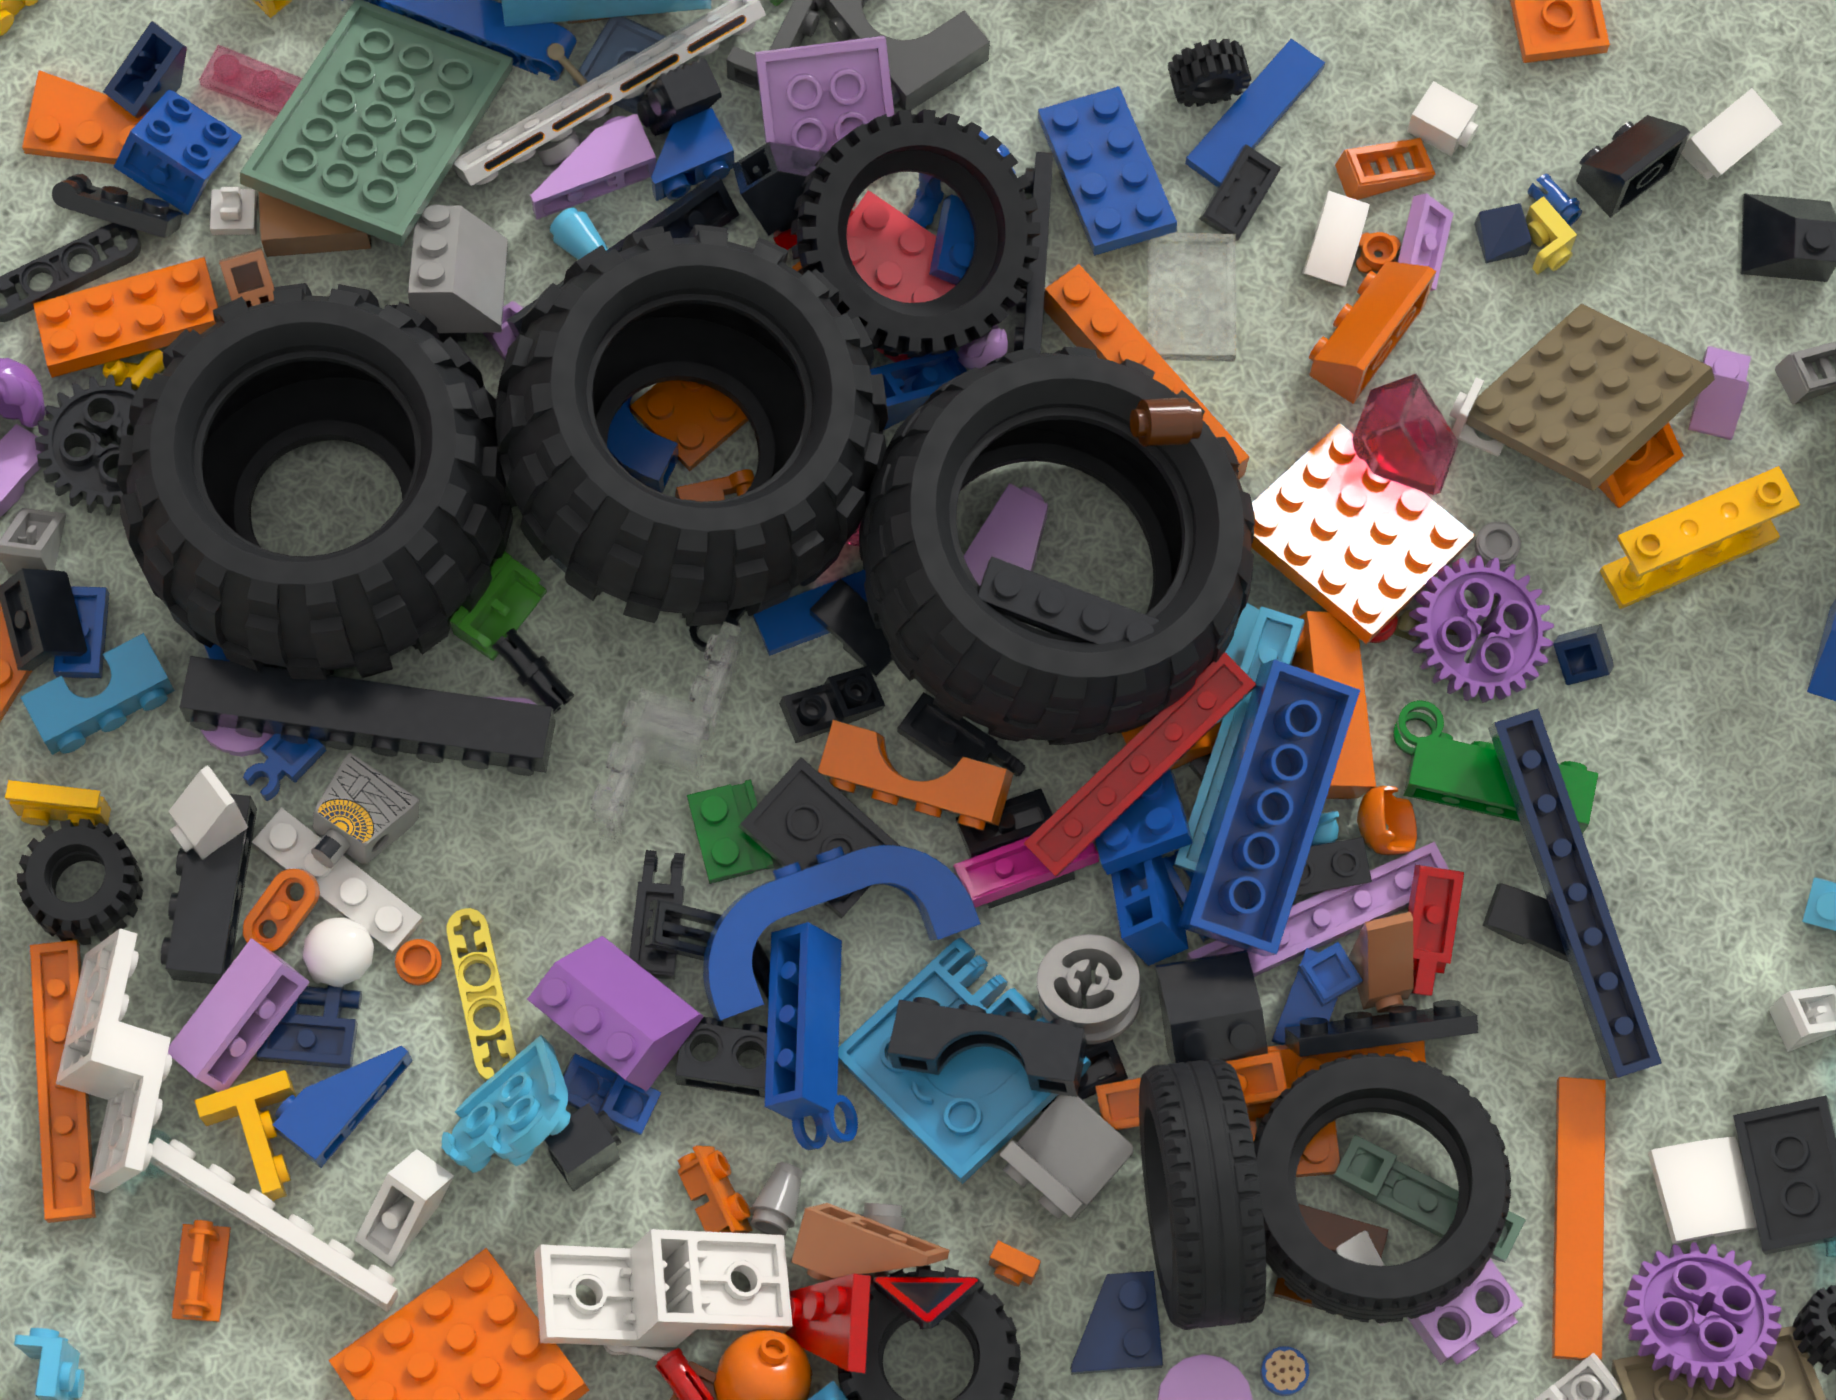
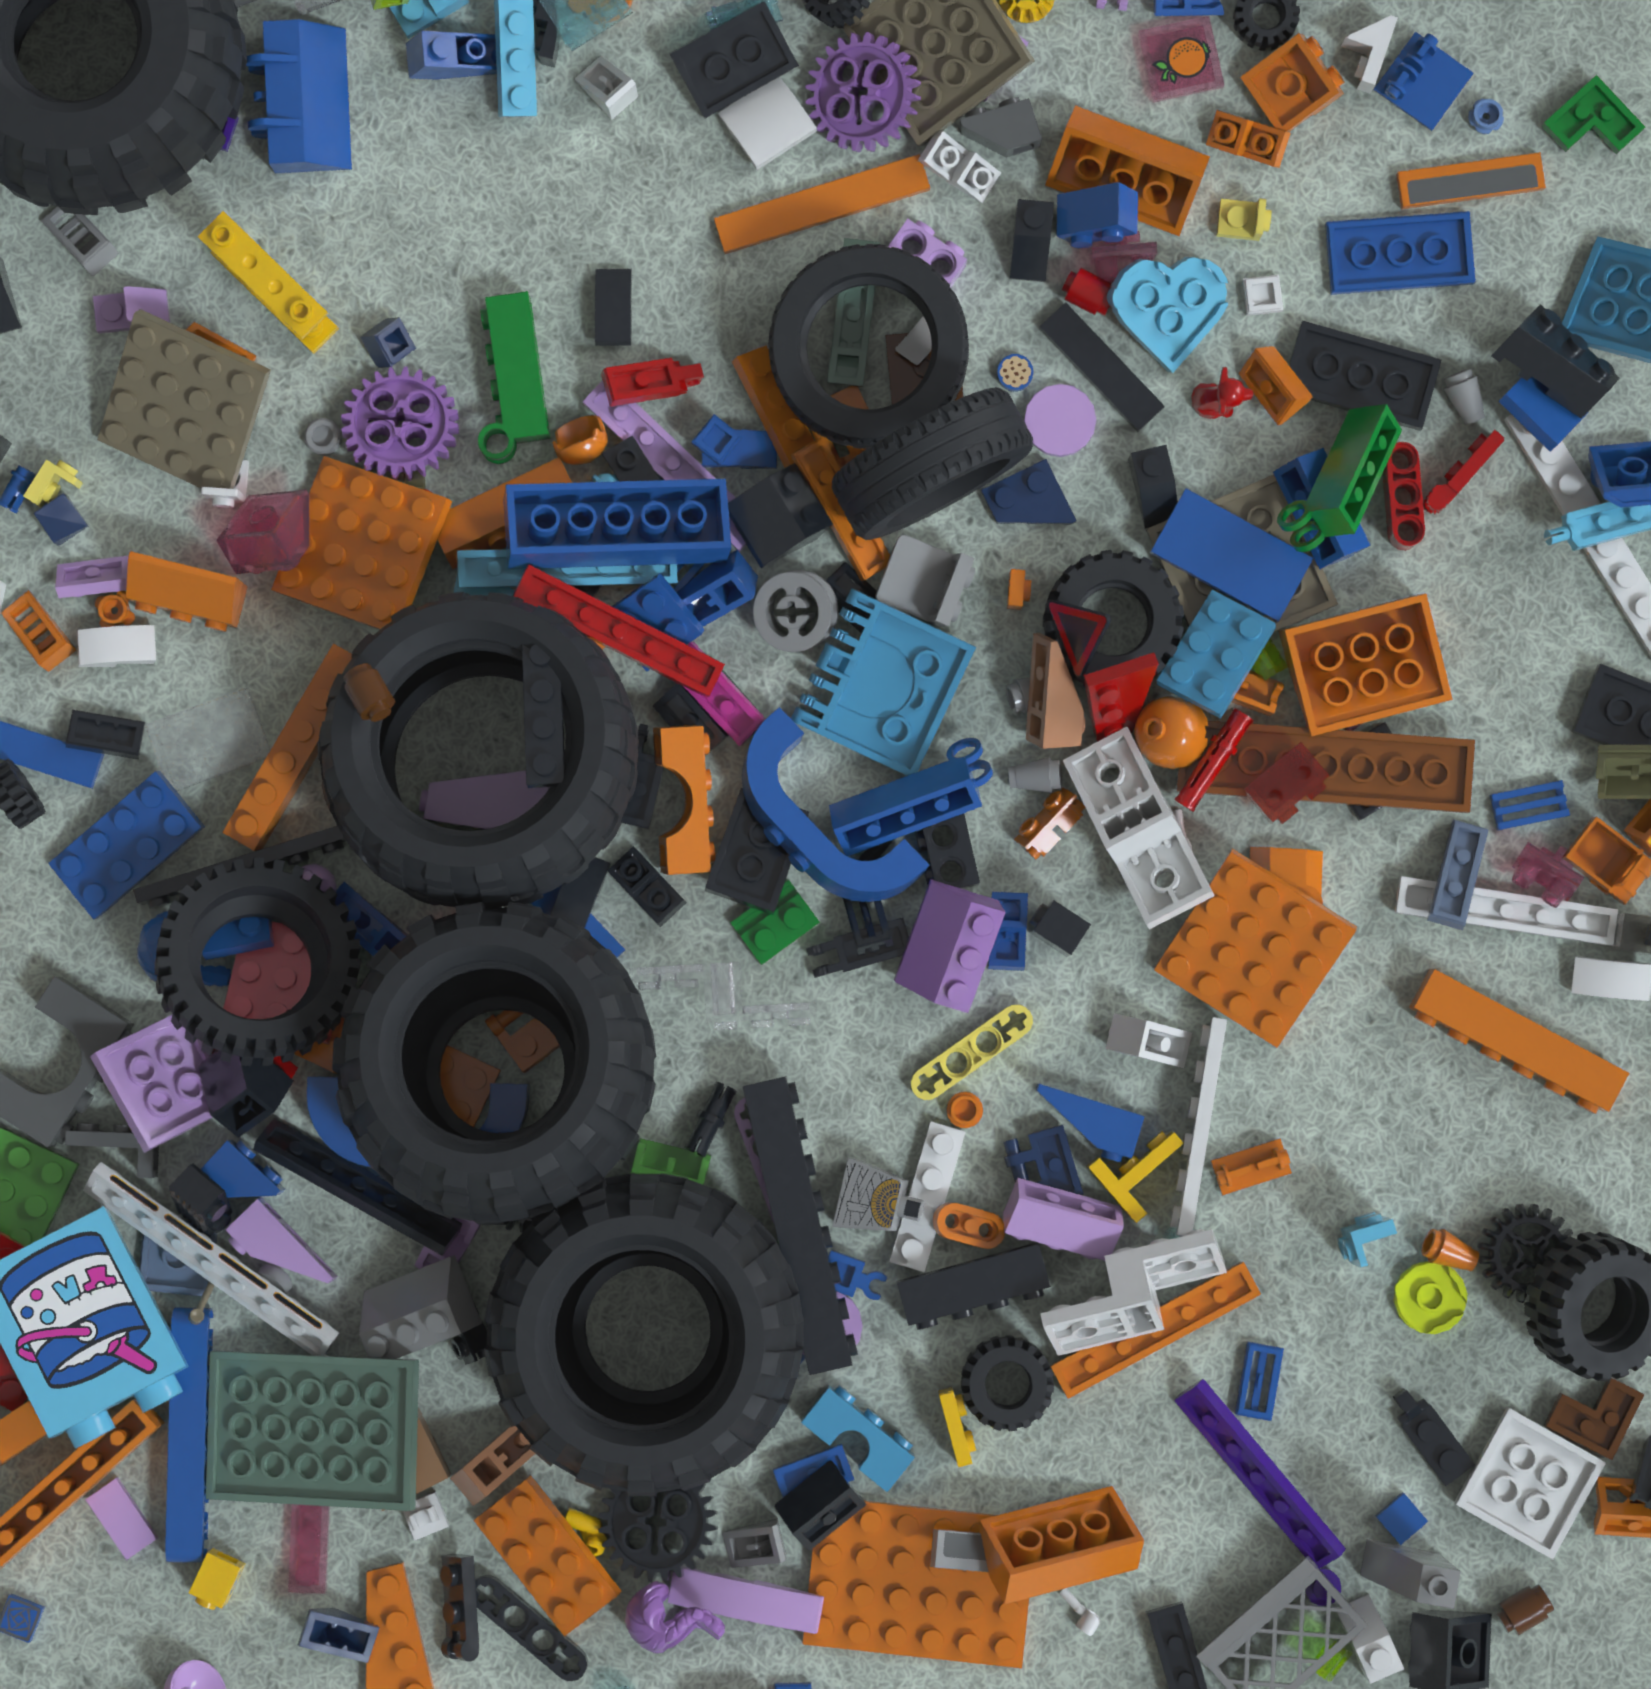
camera: 105 degrees left, 15 degrees up
(176, 150) = (393, 1580): blue bracket -> none
(205, 815) = (932, 1304): white slope -> none
(338, 951) = (983, 1169): white hair -> none
(511, 1110) = (1055, 987): medium azure plate -> none
(575, 233) = (344, 1232): medium azure cone -> none
(931, 1035) = (881, 710): black arch -> none
(1363, 1030) = (743, 389): black plate -> none
(1385, 961) = (696, 401): nougat slope -> none
(1574, 894) = (589, 282): dark blue brick -> none

